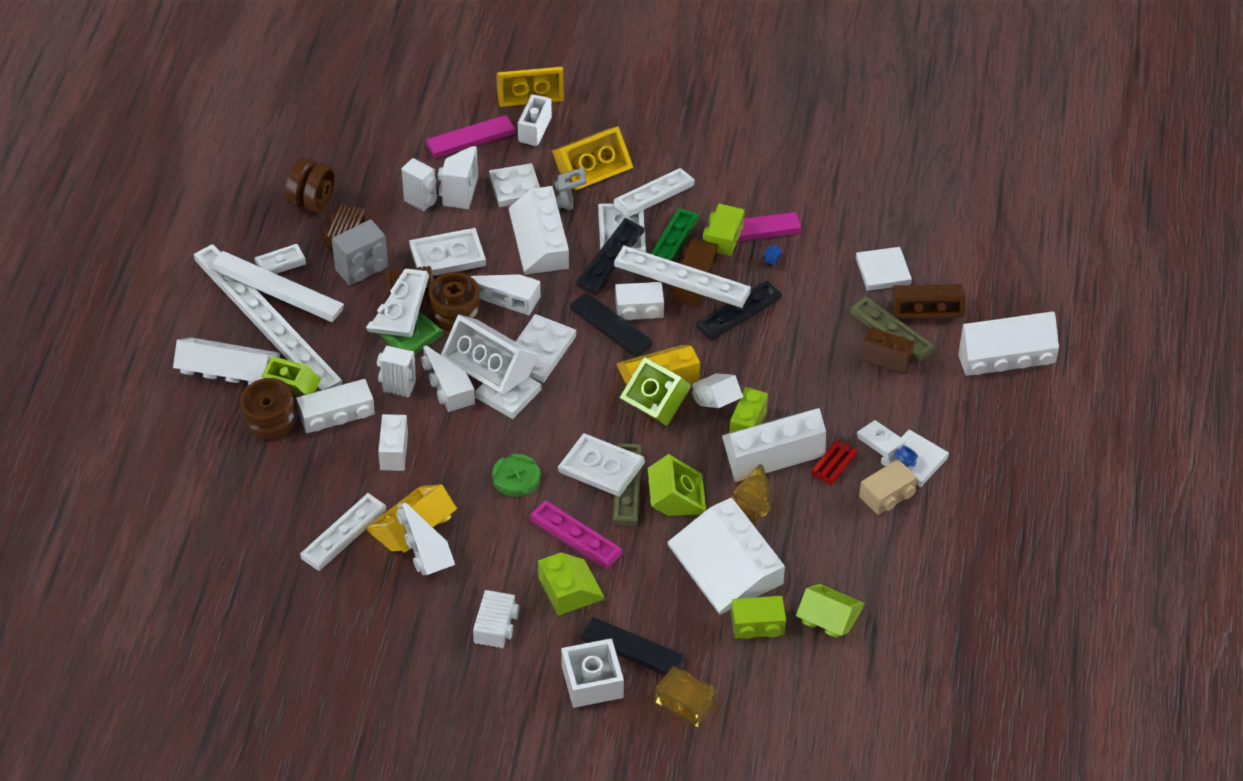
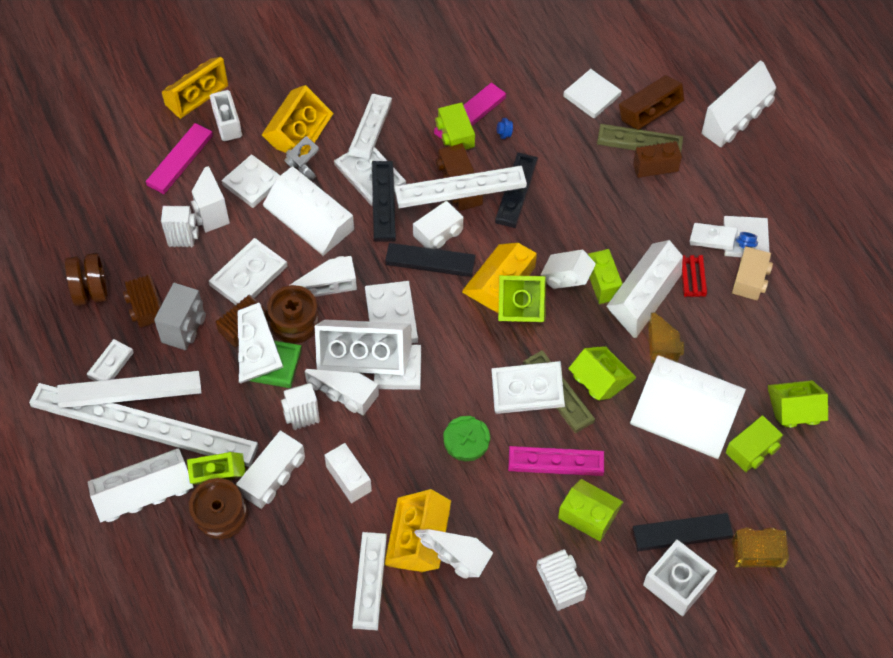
camera: 35 degrees left, 10 degrees up
(676, 234) = (415, 154): green tile -> none

